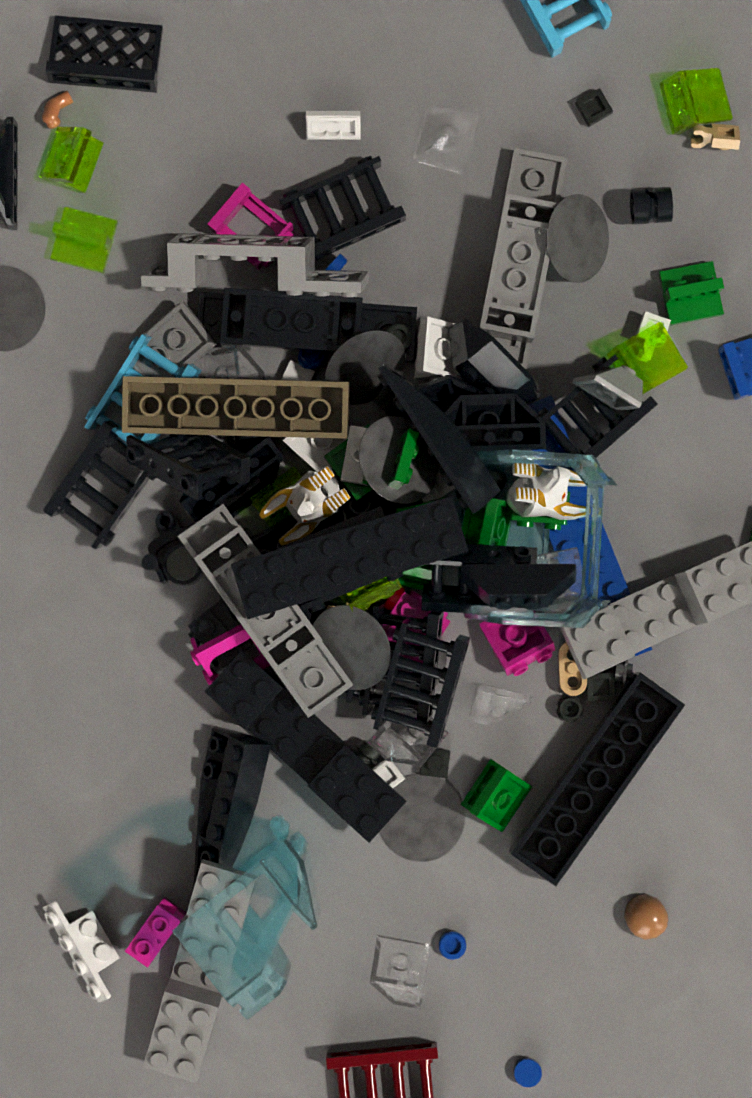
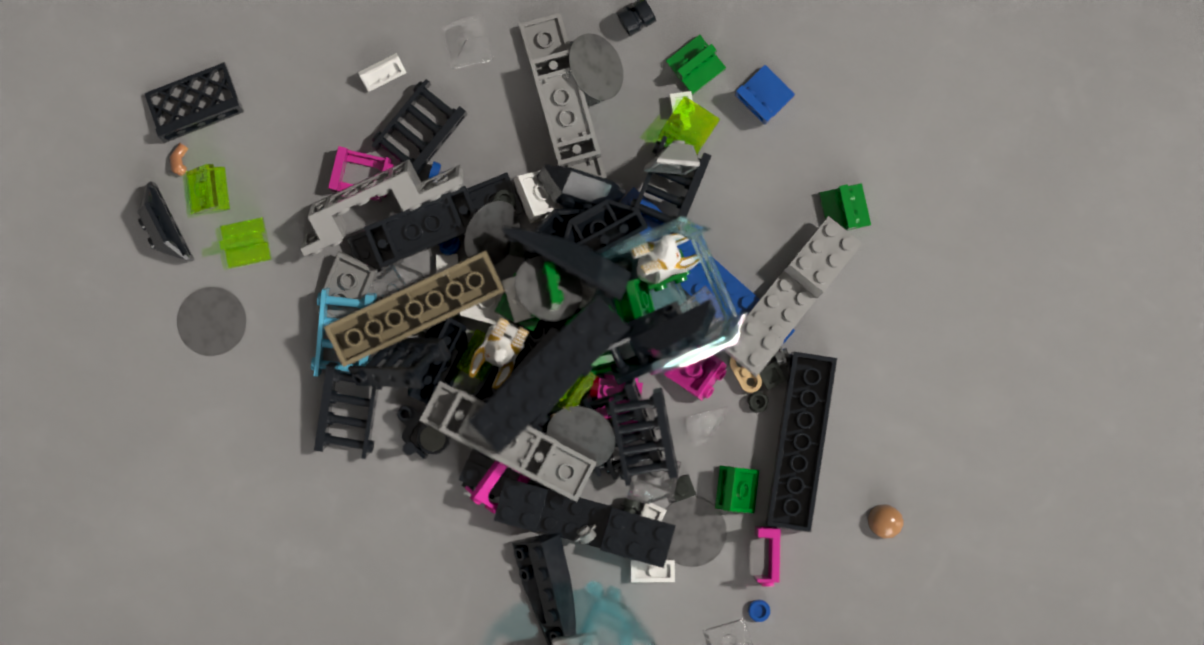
camera: 25 degrees left, 0 degrees up
(300, 760) = (585, 534): none -> light grey plate
(346, 838) = (649, 573): none -> white plate
(511, 871) = (773, 534): none -> dark pink panel

